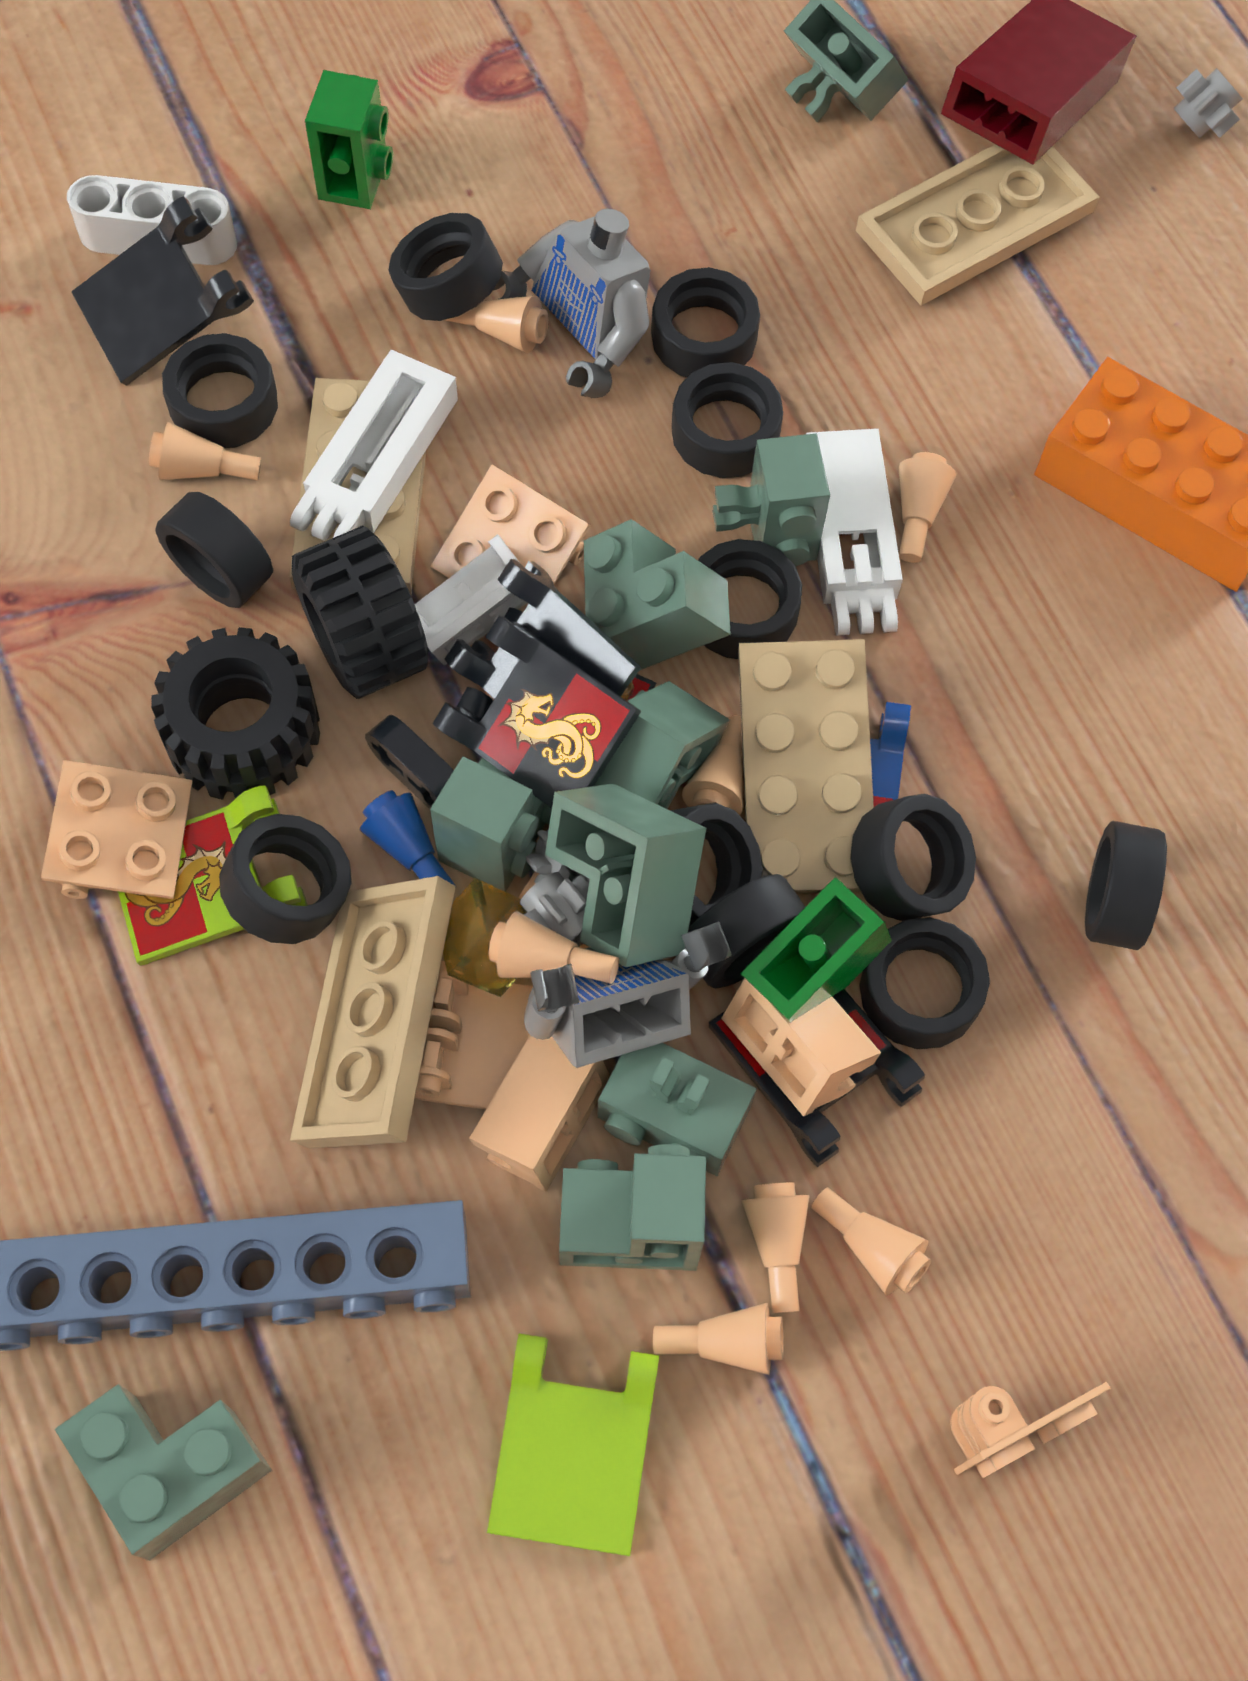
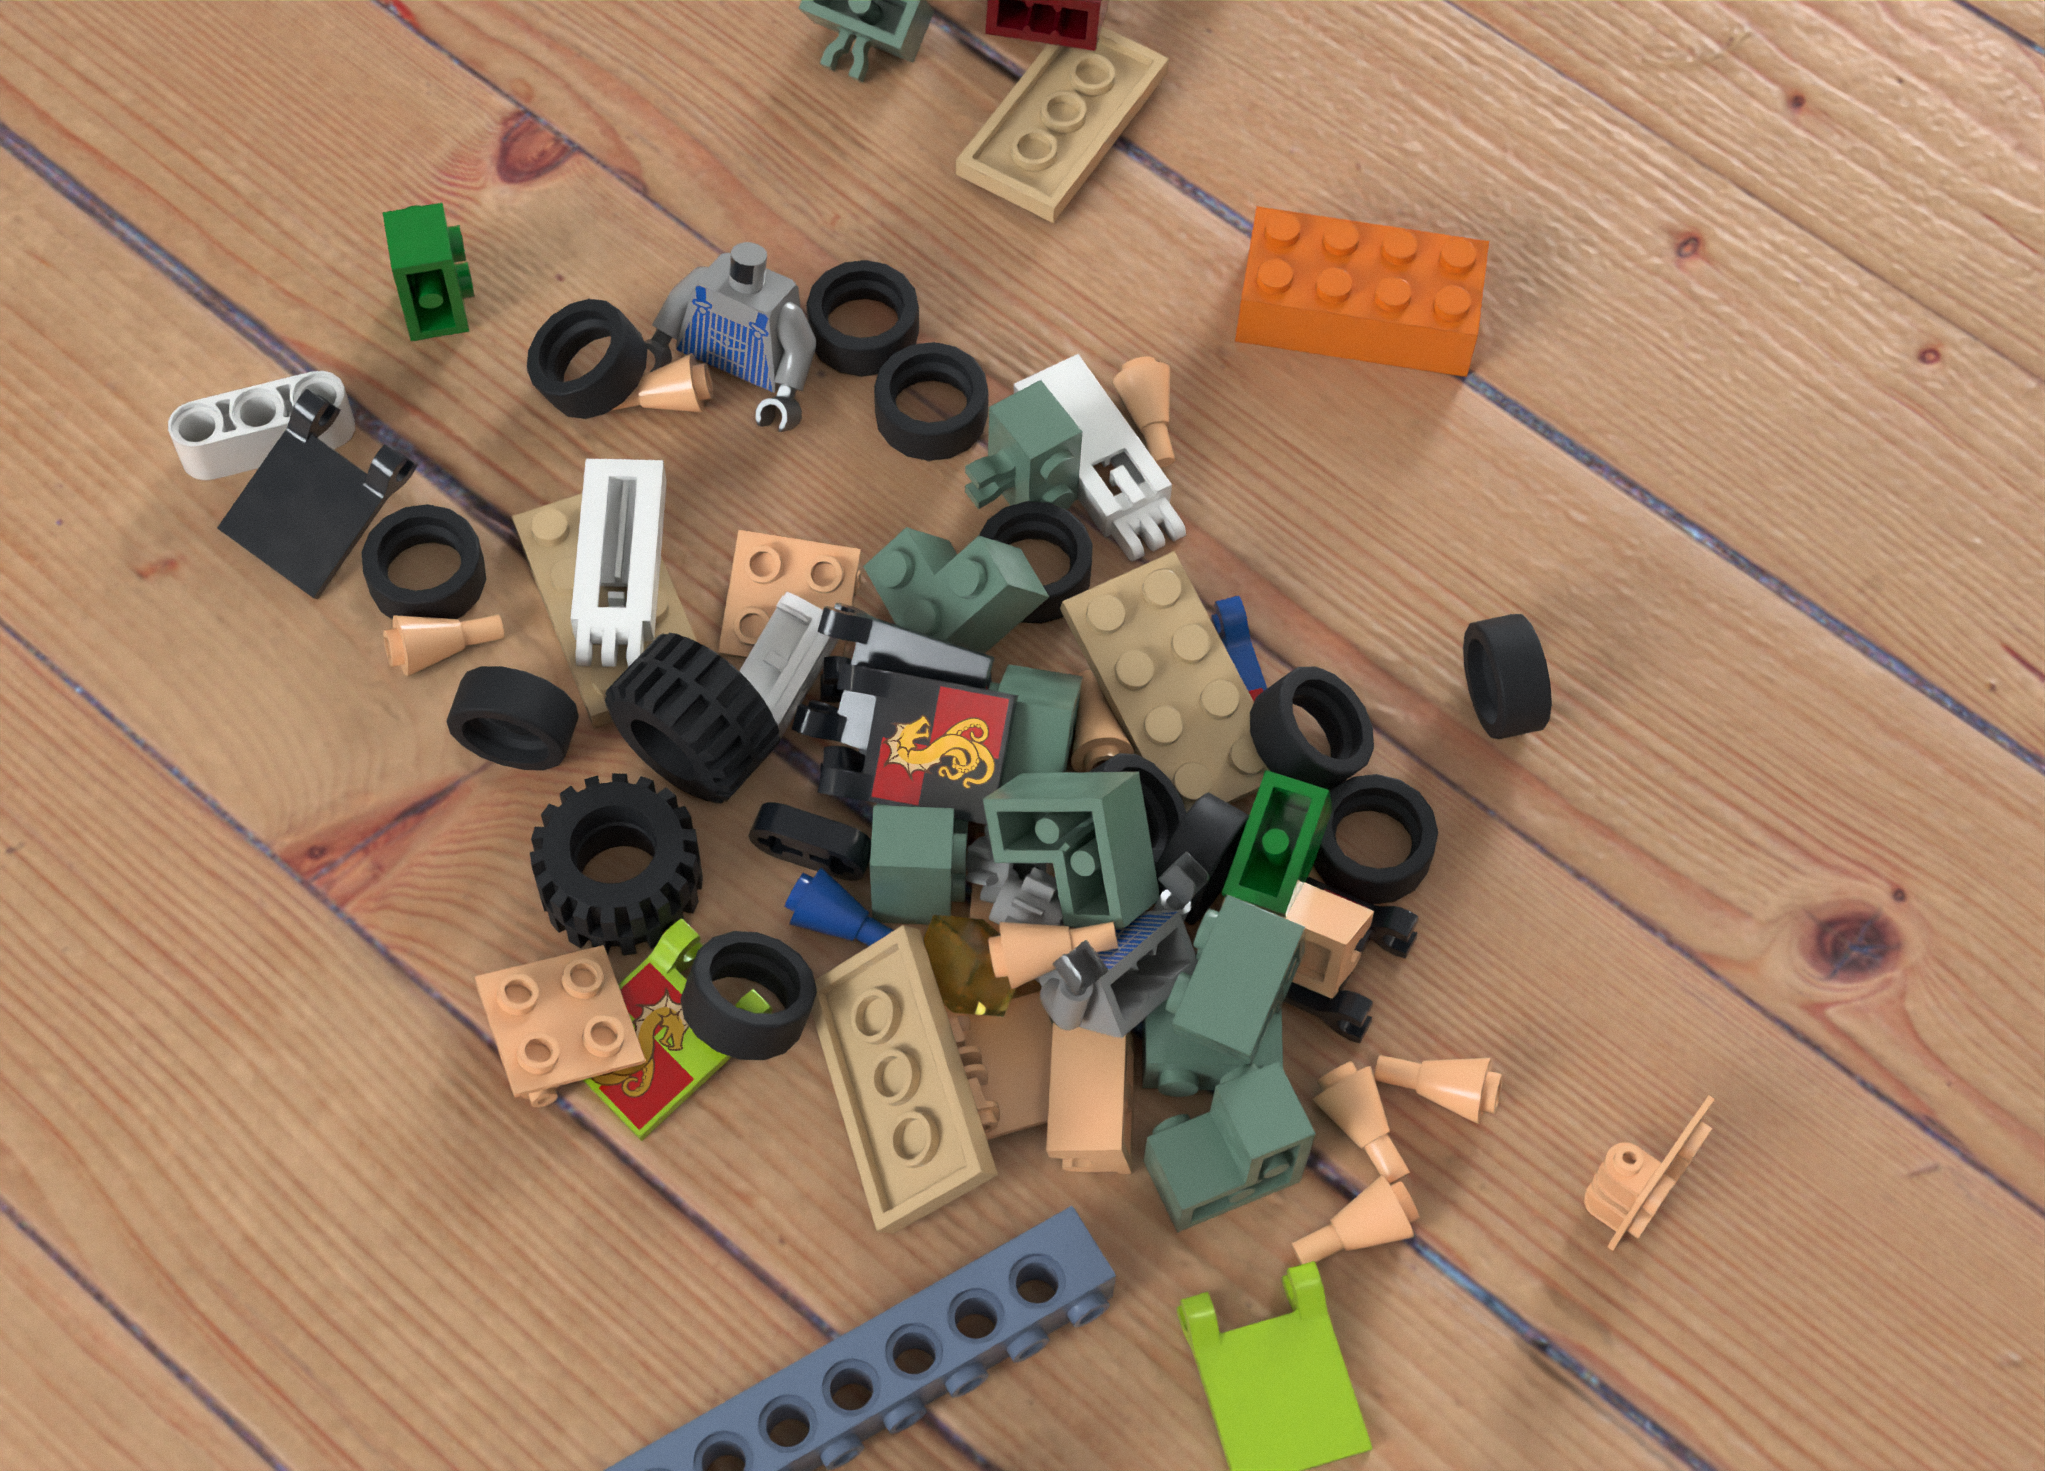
camera: 25 degrees left, 5 degrees down
(702, 1063) = (1239, 978): none -> sand green brick

